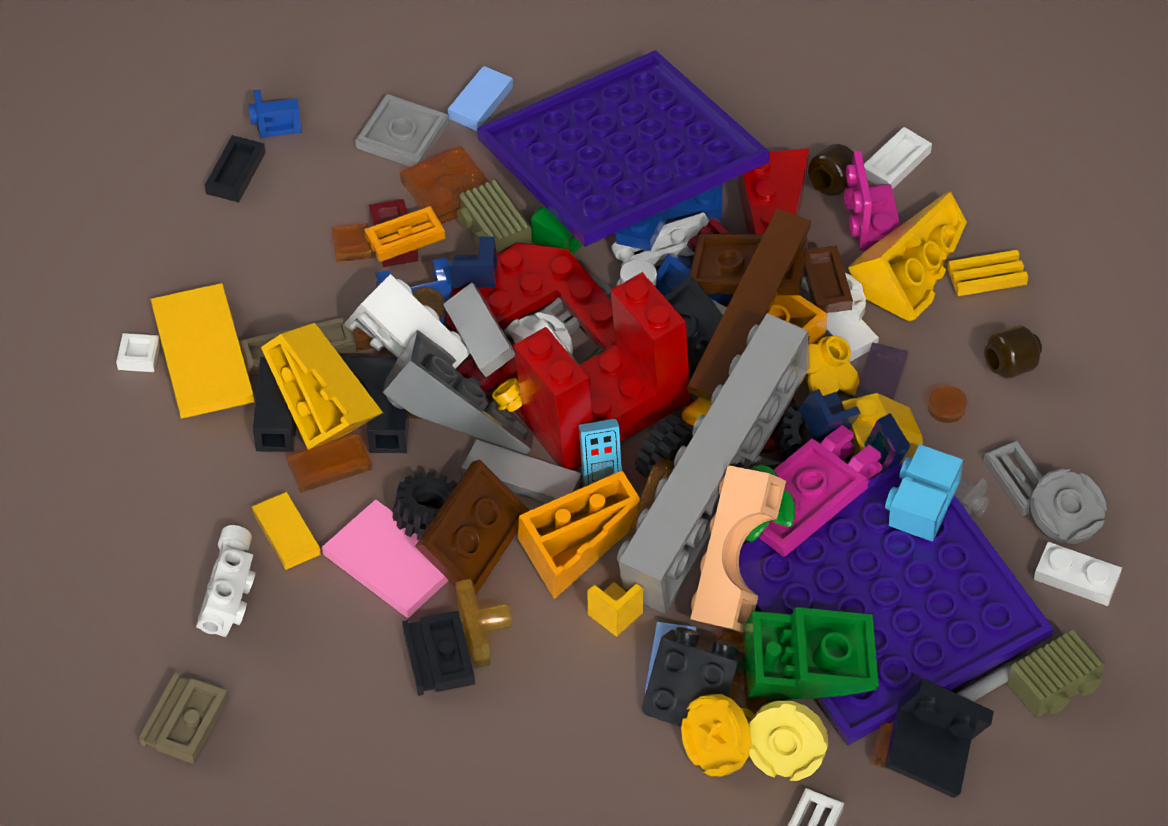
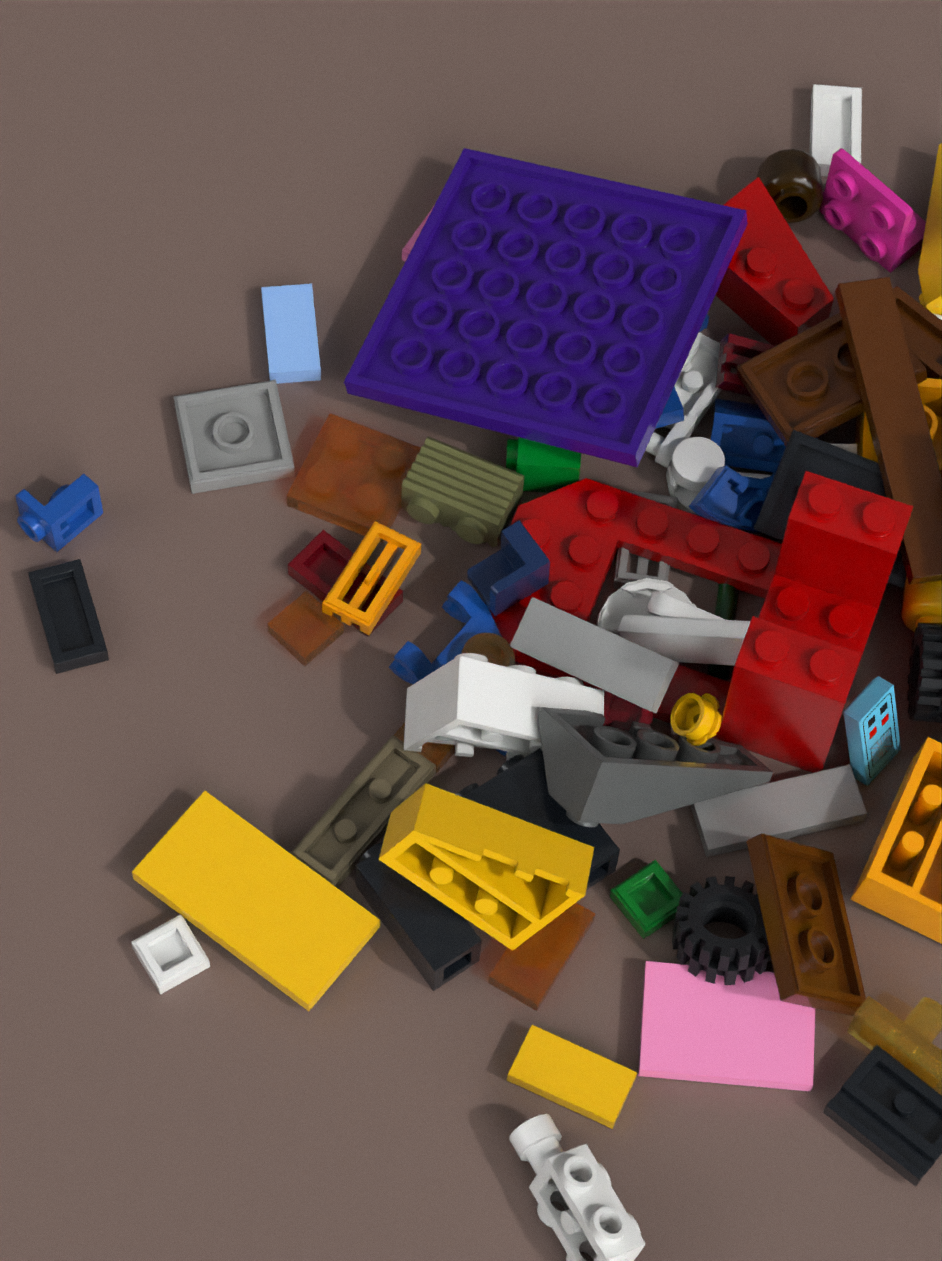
camera: 40 degrees left, 10 degrees up
(404, 466) = (647, 899): none -> green tile

